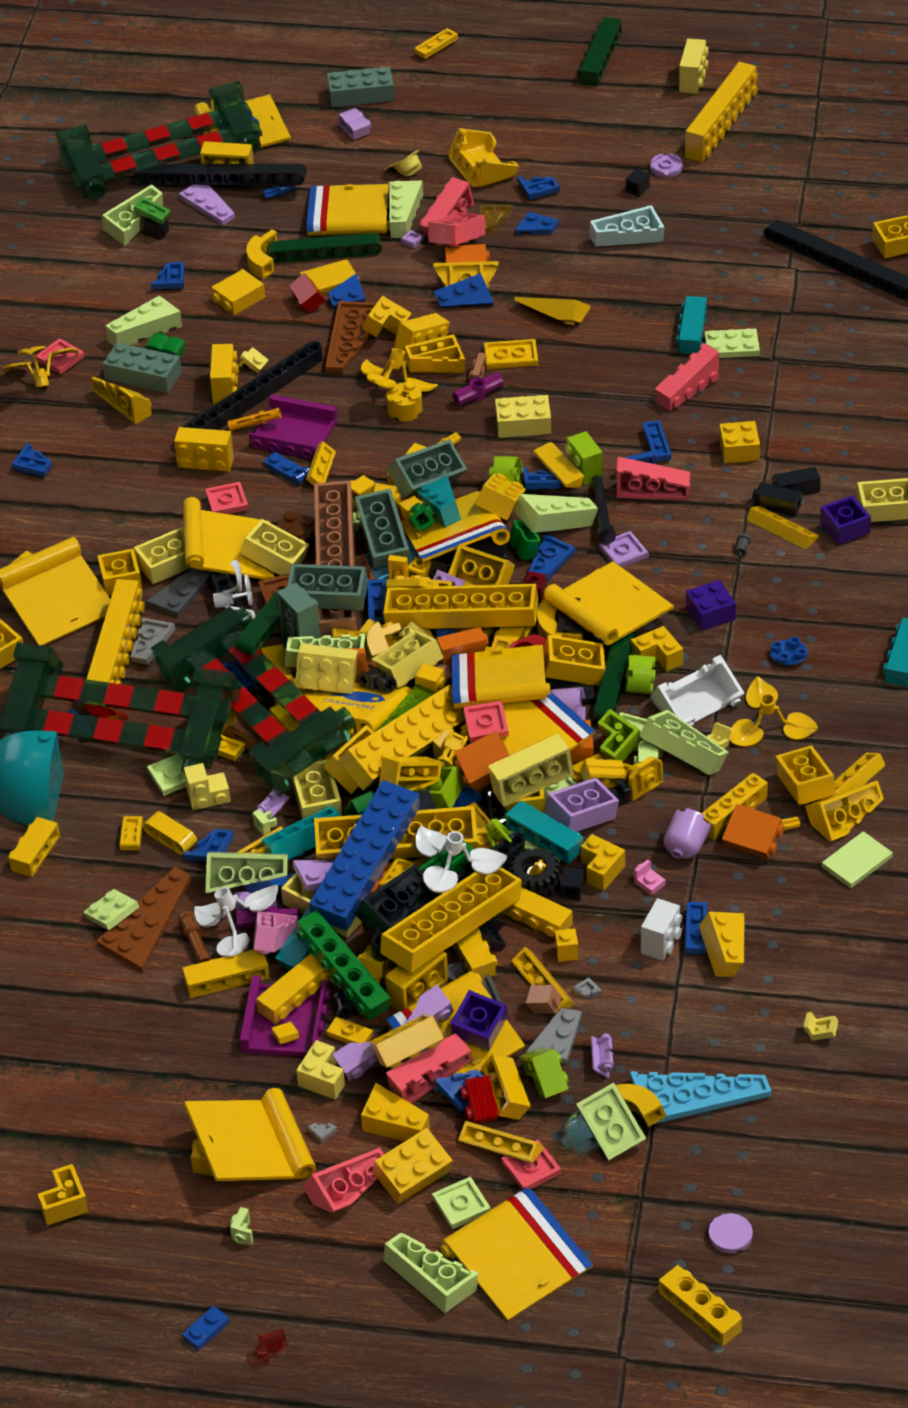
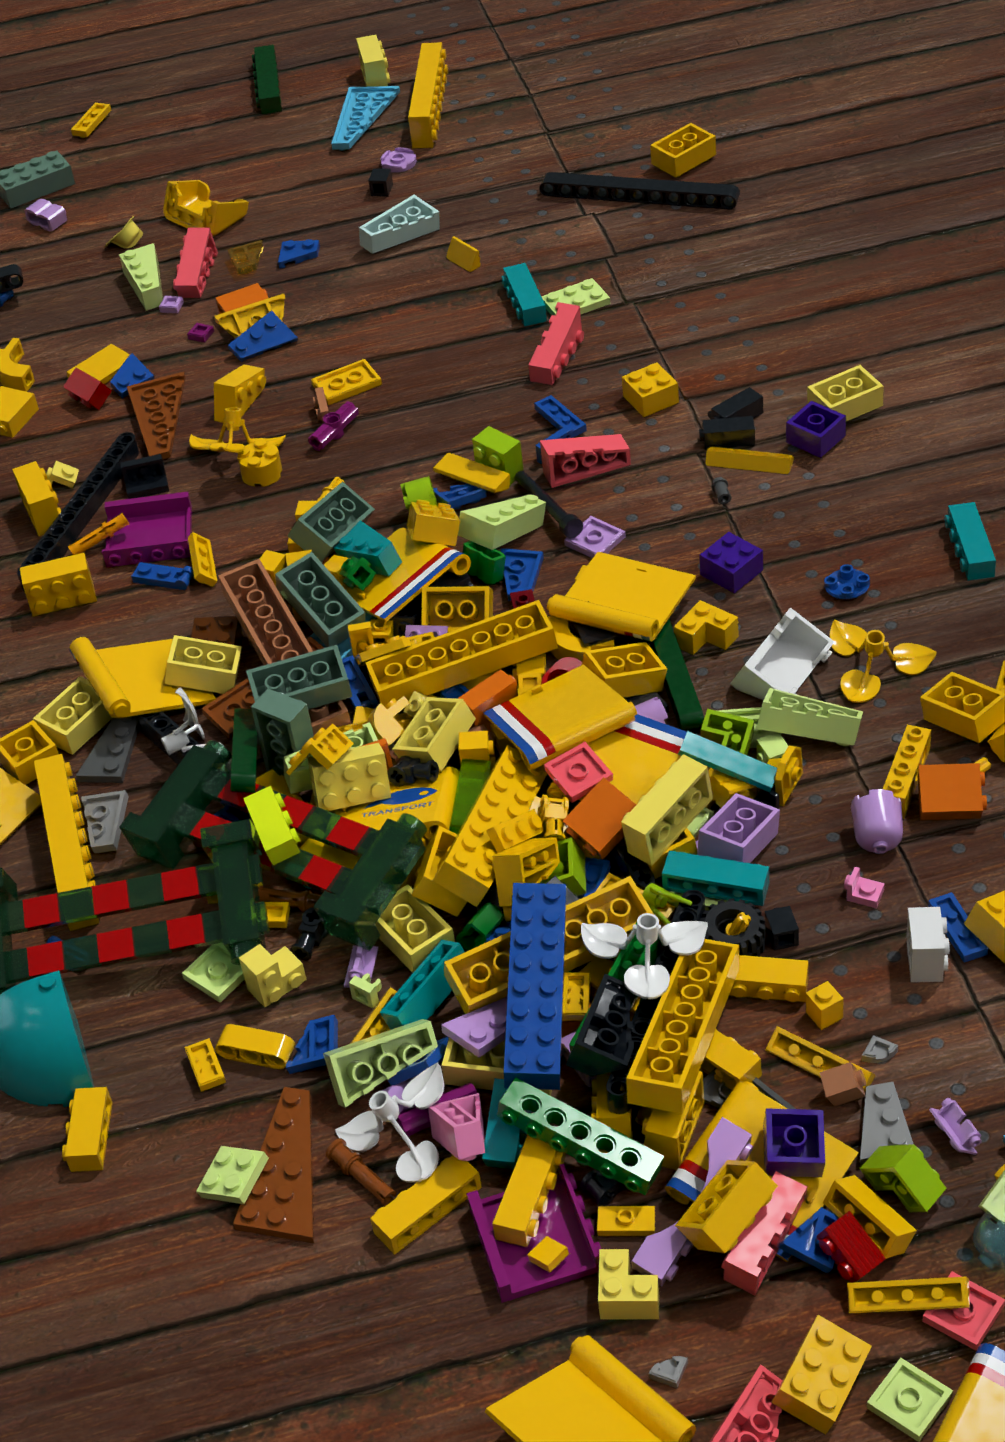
camera: 20 degrees left, 0 degrees up
(106, 712) = (97, 926): red piece -> none
(227, 498) = (112, 629): coral plate -> none
(246, 772) = (311, 934): none -> black connector
(252, 683) = (273, 824): none -> neon yellow brick
(312, 641) = (324, 746): none -> yellow bracket
(313, 383) = (145, 476): none -> black bracket
(324, 247) = (80, 339): dark green beam -> none
(348, 210) = (86, 297): yellow door -> none
(385, 315) = (192, 383): yellow brick -> none
(392, 1116) = (756, 1314): yellow wedge -> none
(416, 746) = (515, 830): none -> yellow plate
(421, 272) = (200, 332): none -> magenta tile
(435, 356) = (271, 406): yellow wedge -> none
(456, 229) = (218, 277): coral brick -> none
(491, 934) = (730, 1028): black bracket -> none
(523, 416) = (400, 437): light yellow brick -> none
(538, 186) = (278, 216): blue wing -> none
(562, 309) = (380, 320): yellow wedge -> none
(600, 751) = (728, 761): none -> teal tile
(602, 860) = (800, 884): yellow brick -> none
(640, 674) = (706, 661): lime brick -> none
(659, 108) = (359, 112): none -> medium azure wing
(665, 273) = (463, 255): none -> yellow slope
(720, 734) = (836, 694): light yellow bracket -> none

